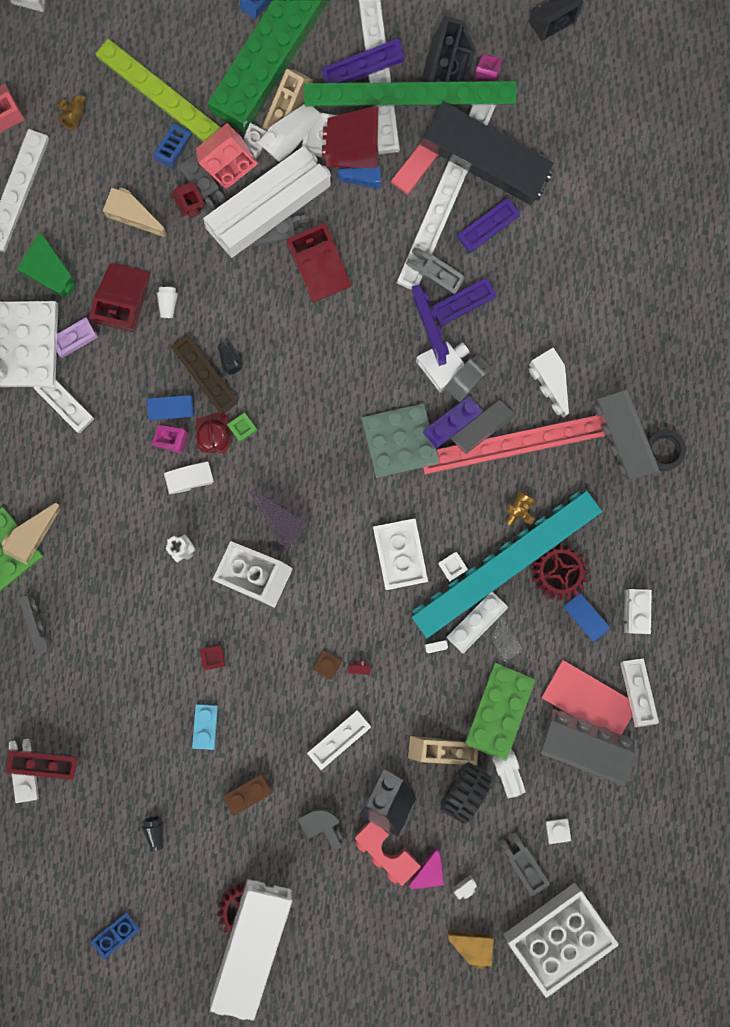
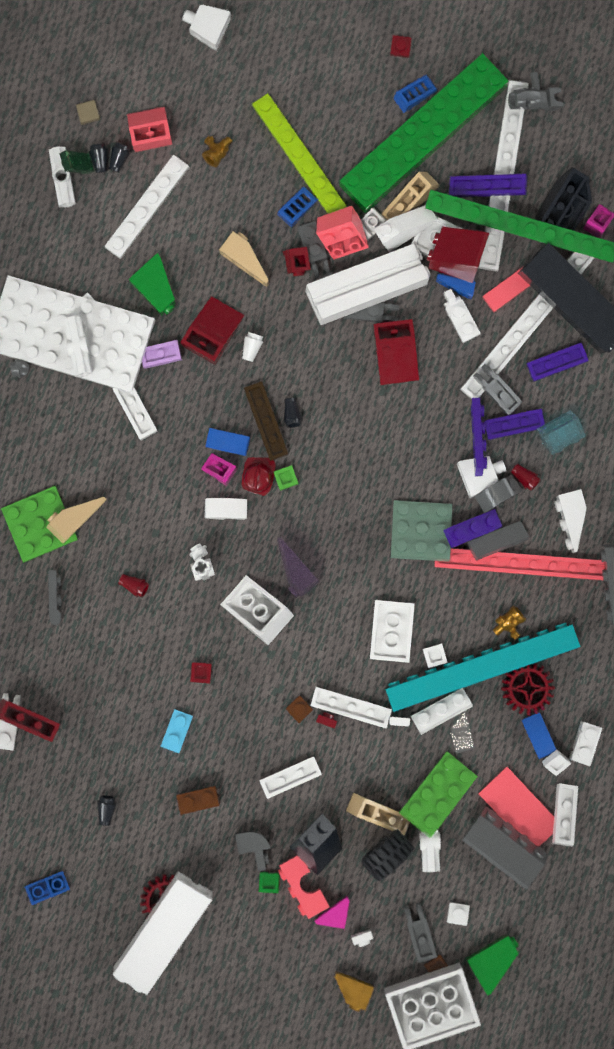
camera: 15 degrees right, 0 degrees up
(116, 586) = (135, 585): none -> dark red cone
(173, 530) = (198, 551): none -> white plate
(349, 858) = (269, 882): none -> green tile
(374, 209) = (460, 317): none -> white hinge
(381, 646) = (351, 707): none -> white plate
(493, 353) = (526, 477): none -> dark red cone
(515, 295) = (561, 432): none -> clear light blue brick
(550, 891) = (435, 964): none -> reddish brown tile
(611, 871) = (493, 961): none -> green slope
(613, 640) = (556, 762): none -> white plate

